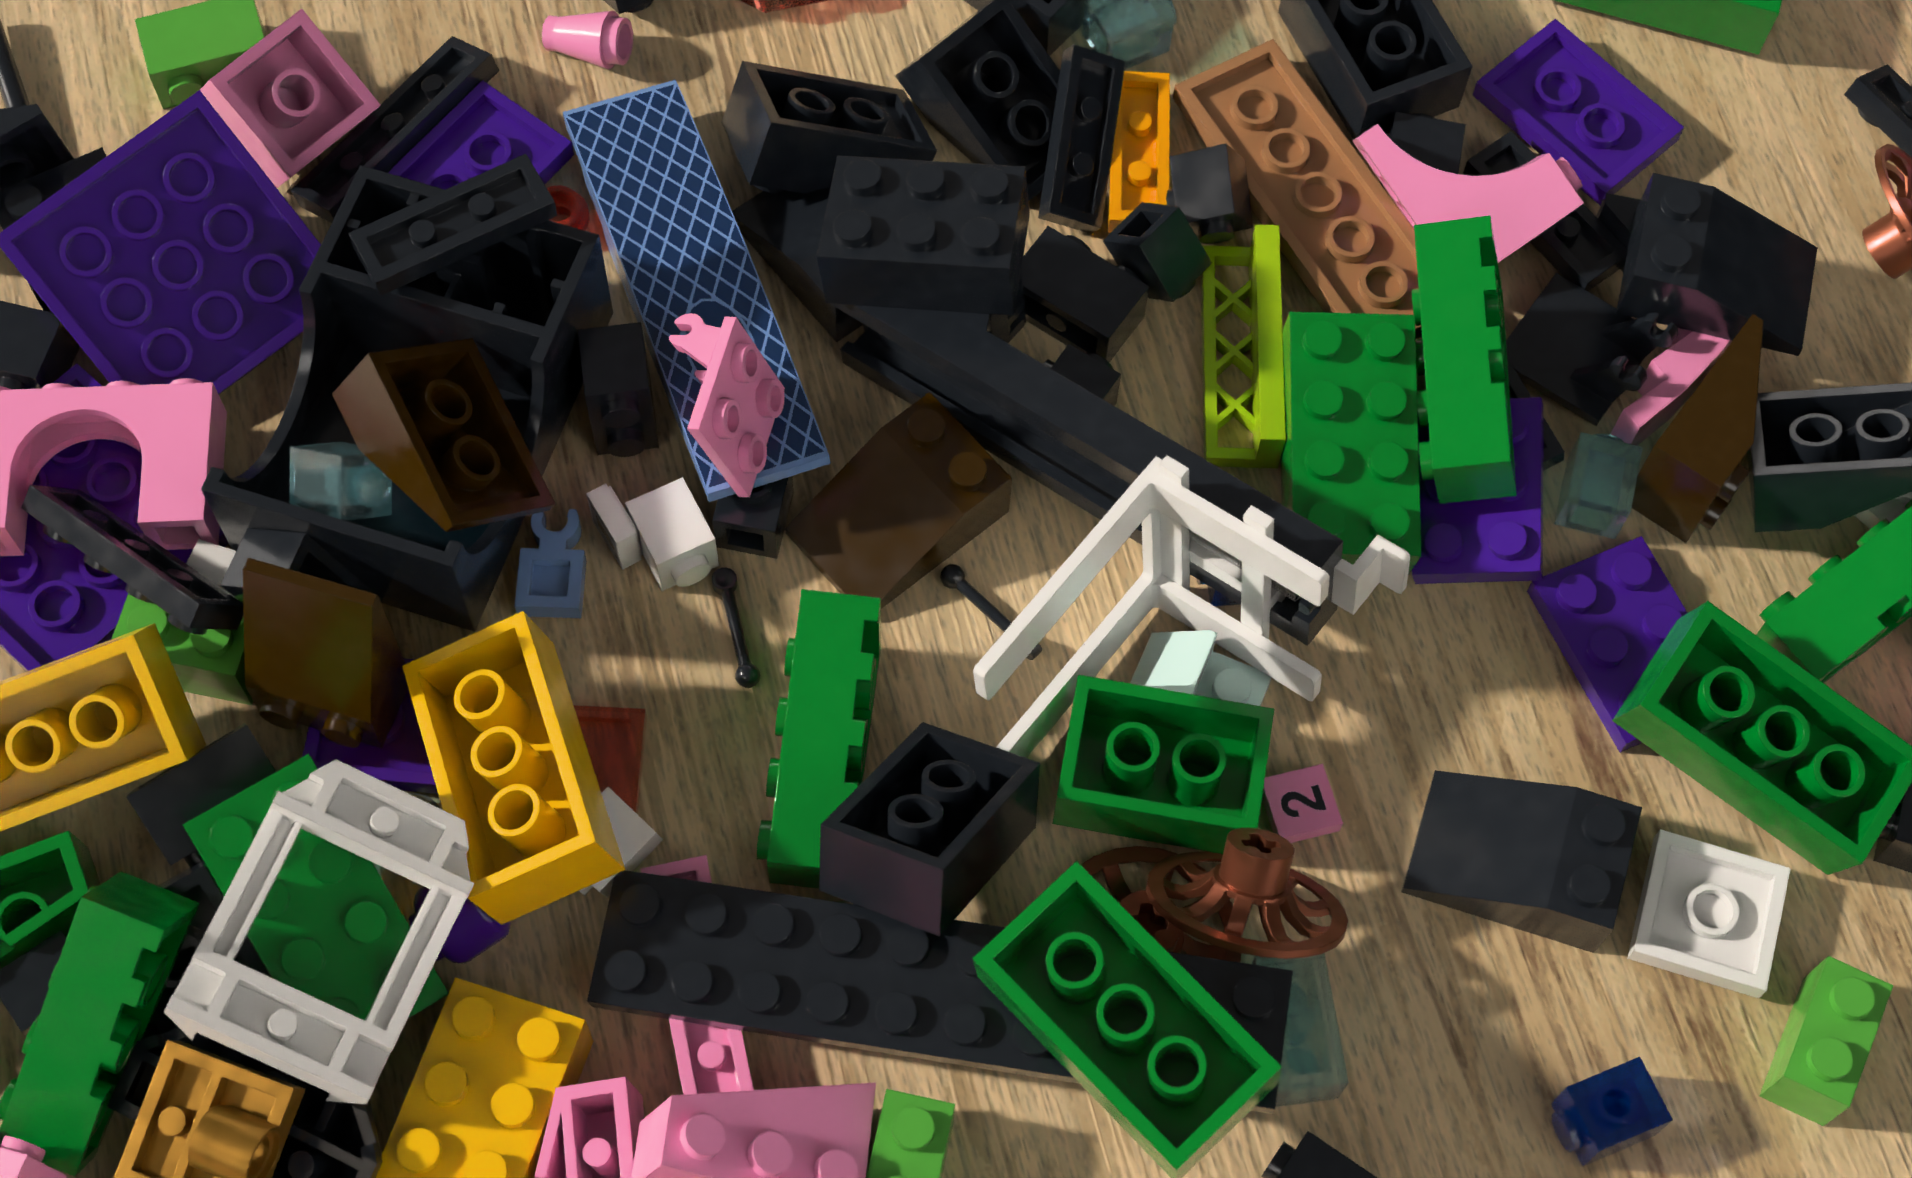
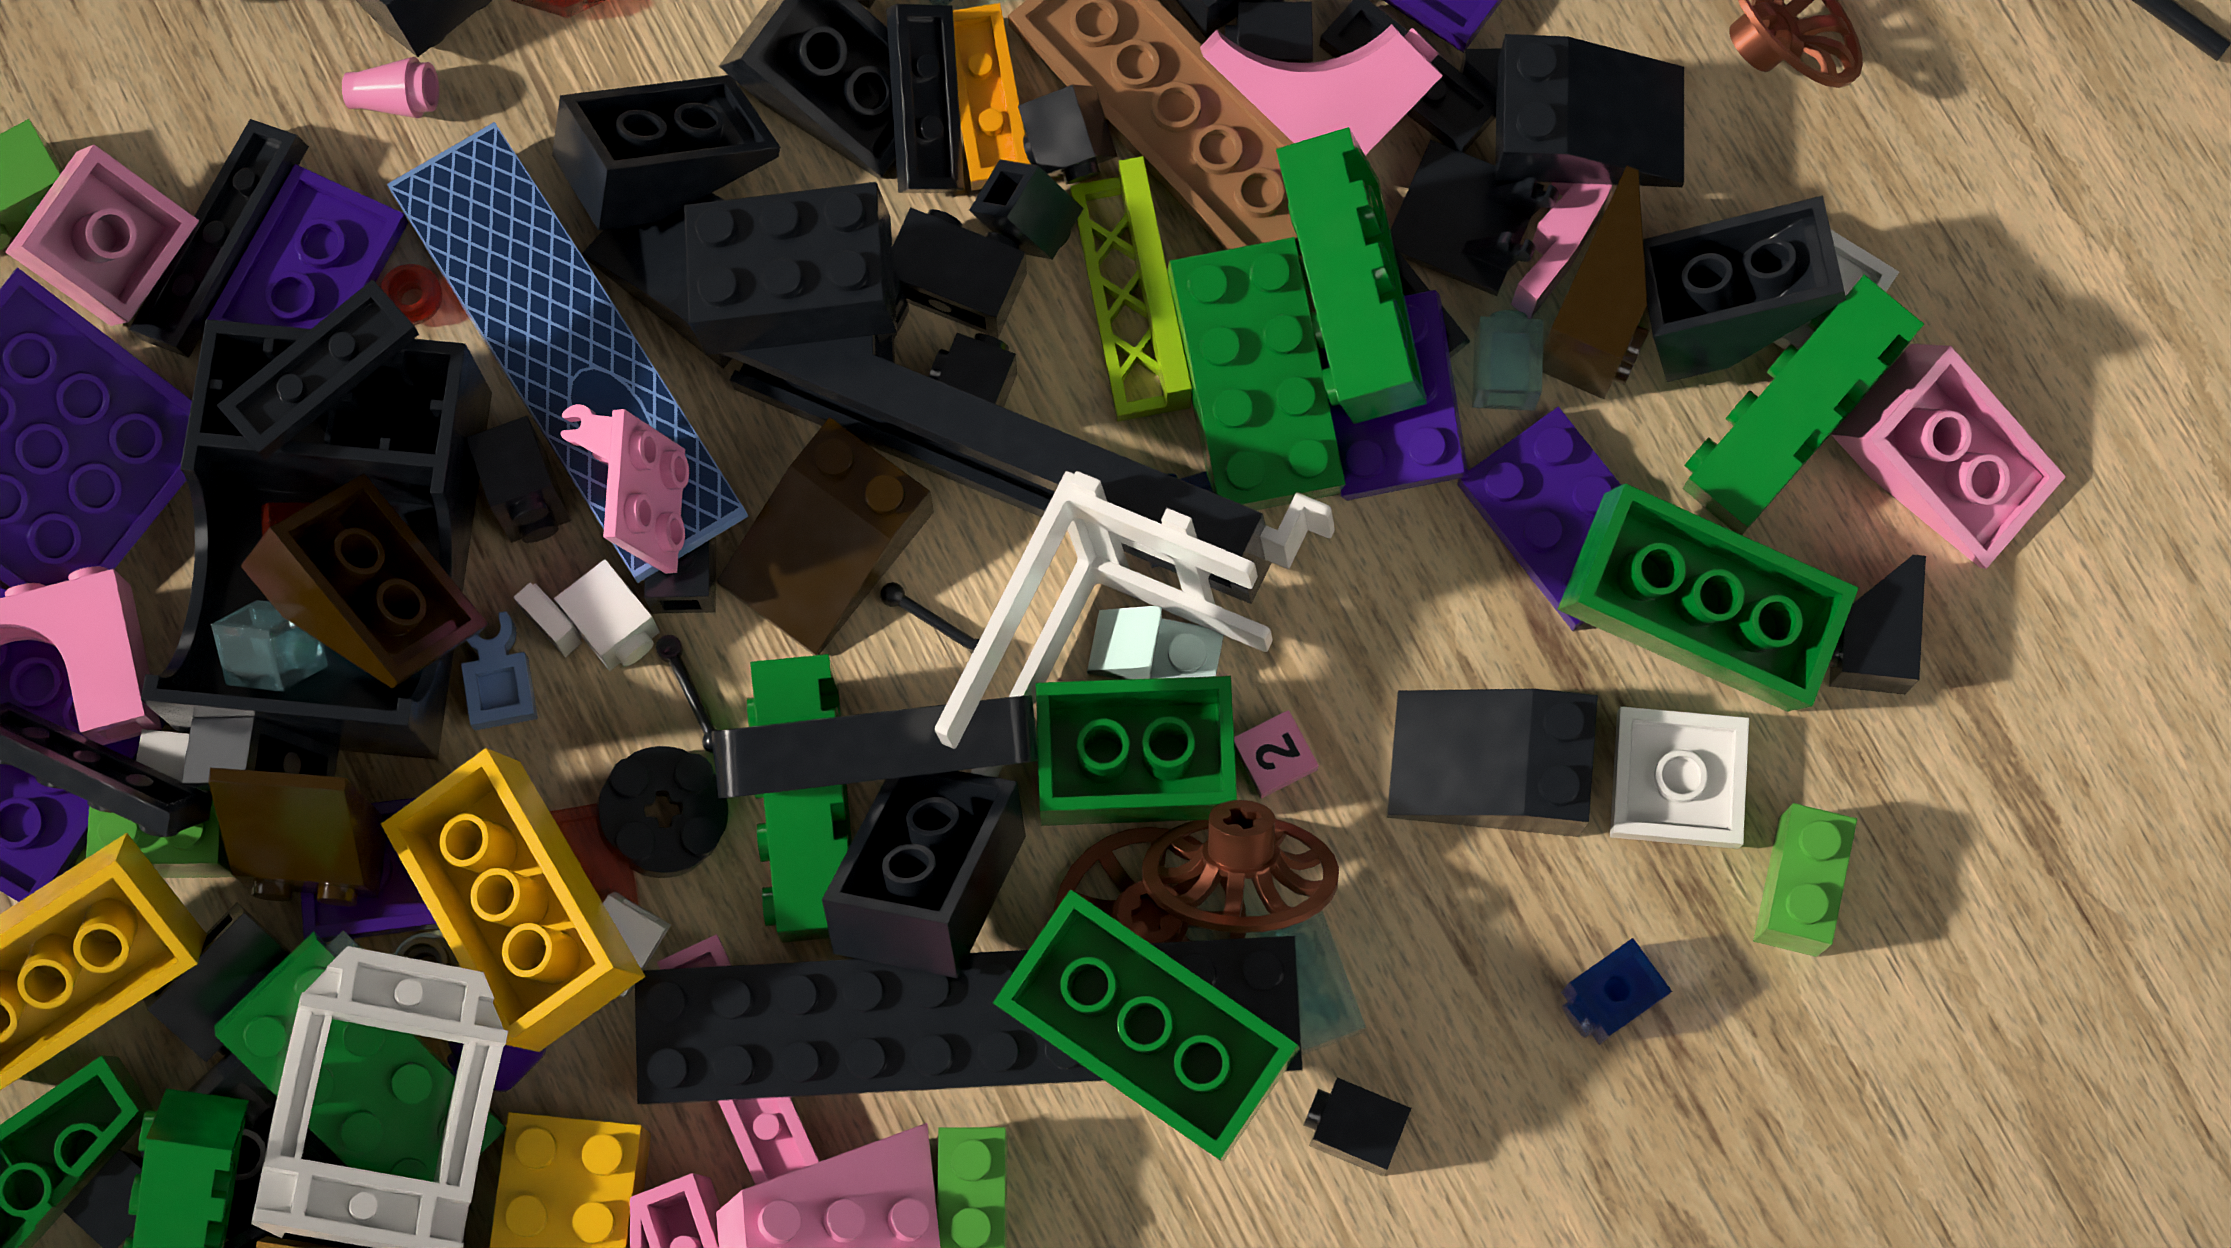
camera: 10 degrees left, 10 degrees up
(650, 747) = (638, 839): none -> black plate
(903, 694) = (869, 747): none -> black beam

